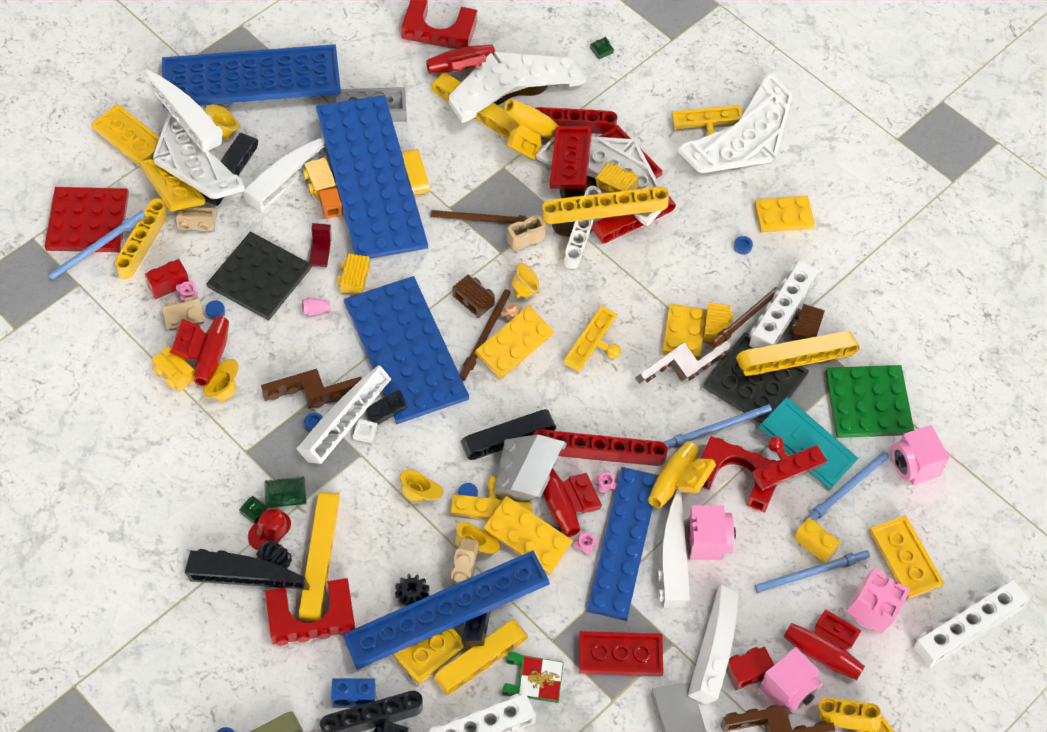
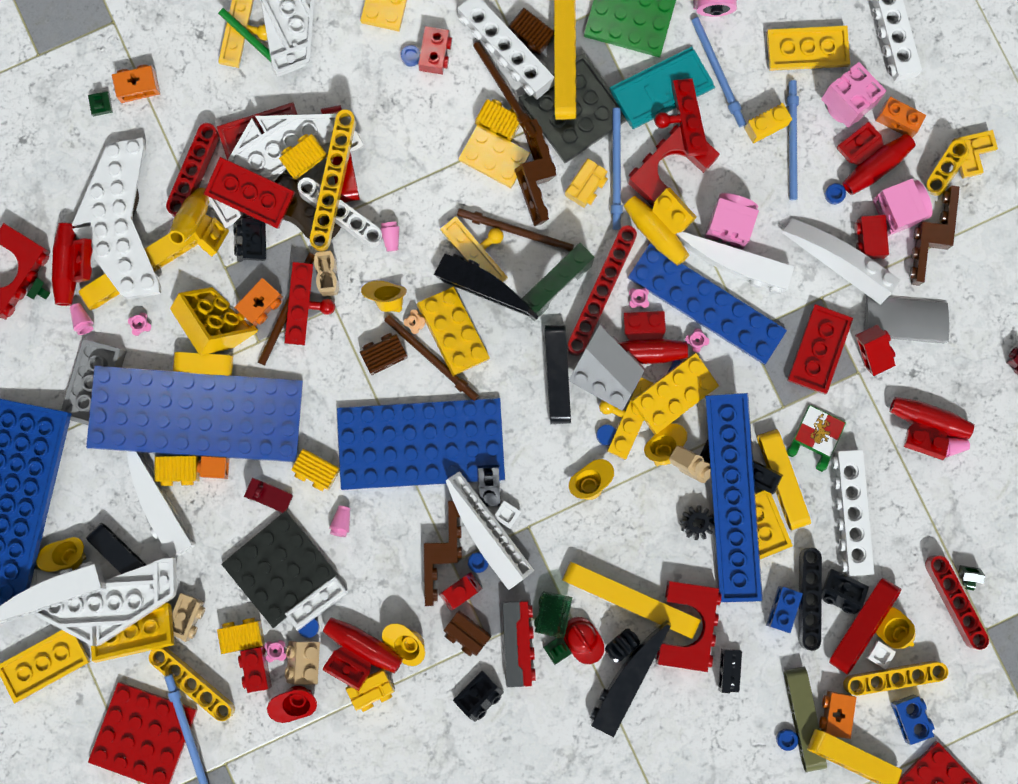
camera: 70 degrees left, 25 degrees up
(143, 311) = (292, 705): none -> red piece
(190, 456) = (478, 696): none -> black bracket
(193, 260) = (240, 637): none -> yellow brick
(238, 308) = (316, 603): none -> white tile
(246, 429) = (467, 633): none -> reddish brown brick
(249, 472) = (517, 644): none -> piece
(278, 660) = (730, 670): none -> black bracket
(283, 411) = (460, 591): none -> red torso
(420, 82) = (81, 321): none -> bright pink cone
(432, 117) = (133, 321): none -> bright pink plate
(433, 47) = (37, 290): none -> dark green tile
(453, 166) = (210, 321): none -> yellow wedge
(482, 195) = (265, 293): none -> orange brick
(492, 223) = (300, 303): none -> red plate
(533, 175) = (250, 240): none -> black bracket
(566, 333) = (479, 282): none -> black slope
(579, 272) = (390, 235): none -> bright pink cone
(613, 406) = (570, 267): none -> dark green arch
(623, 335) = (478, 218): none -> reddish brown bar
(628, 64) = (145, 86): none -> orange brick
(638, 698) = (876, 350): none -> red brick
(692, 407) = (586, 182): none -> yellow brick
(705, 118) = (245, 33): none -> green bar
(755, 258) = (434, 50): none -> brick
(778, 624) = (835, 193): none -> blue tile
(879, 658) = (900, 117): none -> orange brick

